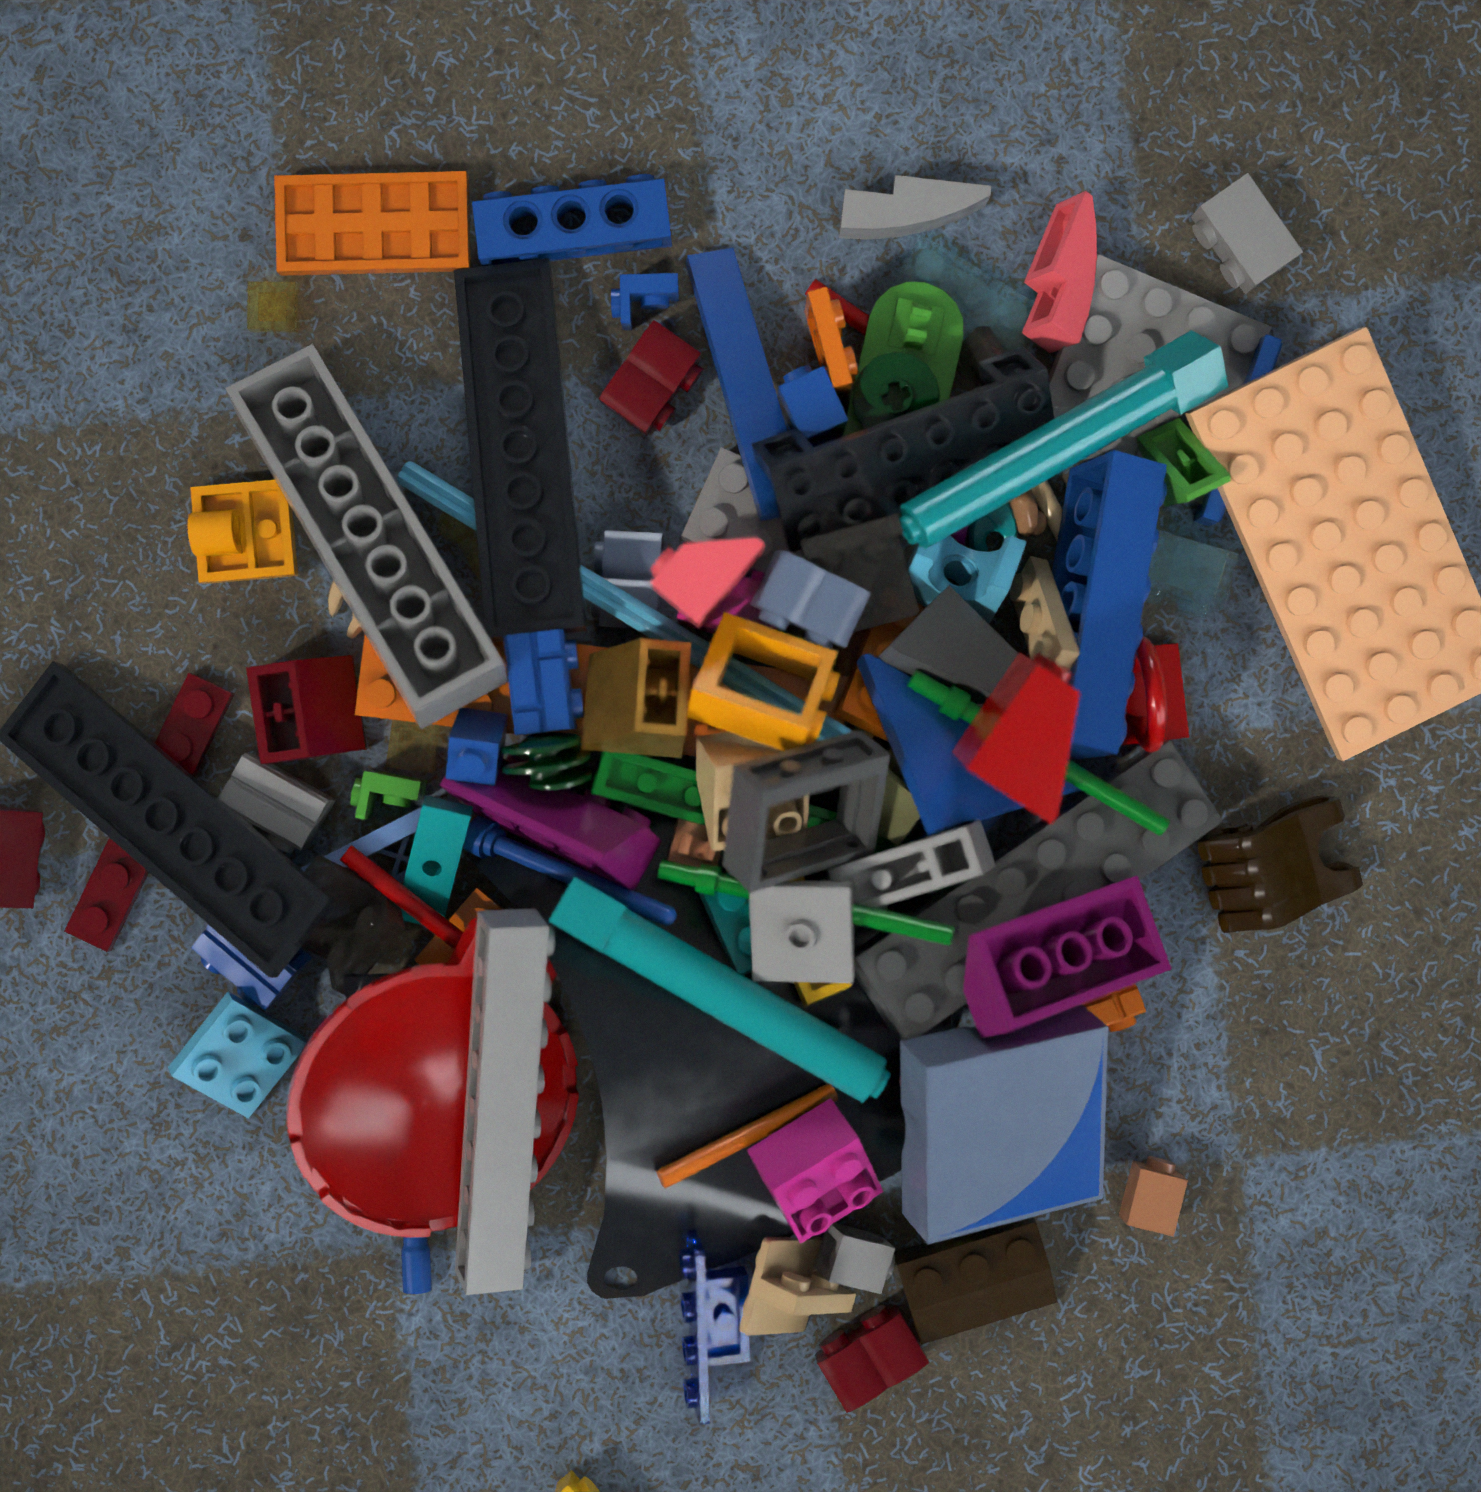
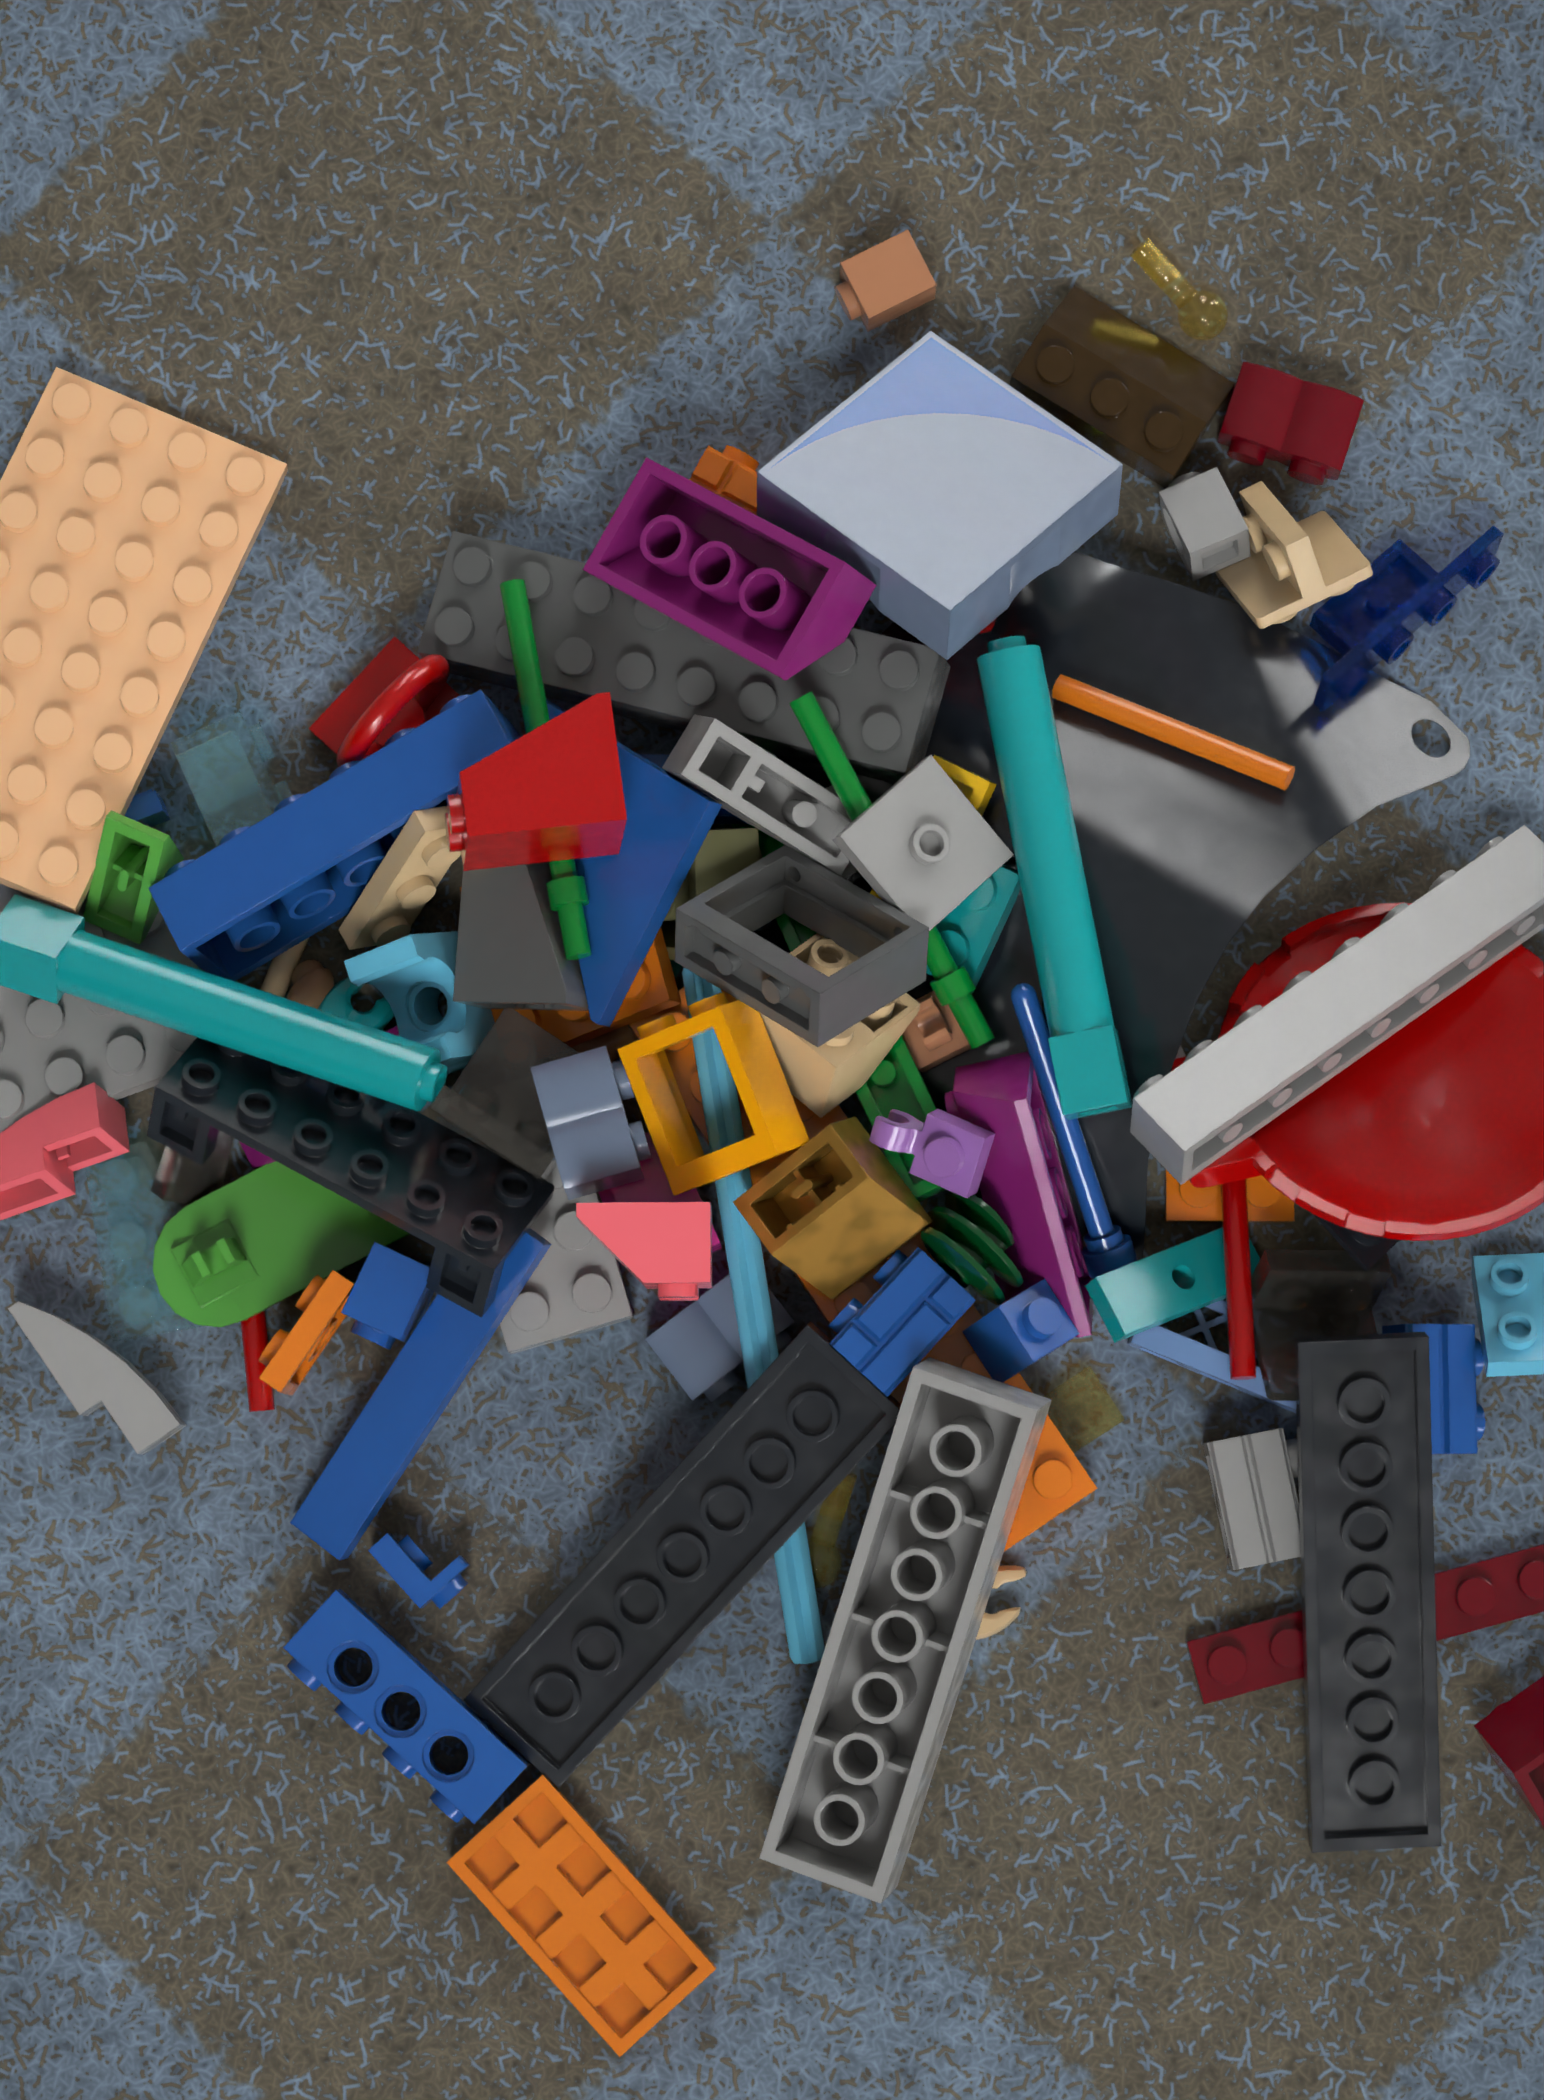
camera: 125 degrees left, 5 degrees down
(242, 532) = (1012, 1772): light orange plate -> none
(272, 307) = (755, 1945): clear yellow tile -> none
(305, 709) = (1135, 1546): dark red slope -> none
(396, 791) = (1138, 1390): bright green bracket -> none
(615, 792) = (945, 1147): none -> medium lavender plate
(652, 378) = (496, 1487): dark red brick -> none
(816, 1170) = (1148, 634): dark pink slope -> none
(887, 371) = (314, 1251): dark green piece -> none
(979, 1360) = (1200, 312): none -> clear yellow bar
(1274, 871) = (456, 438): dark brown piece -> none

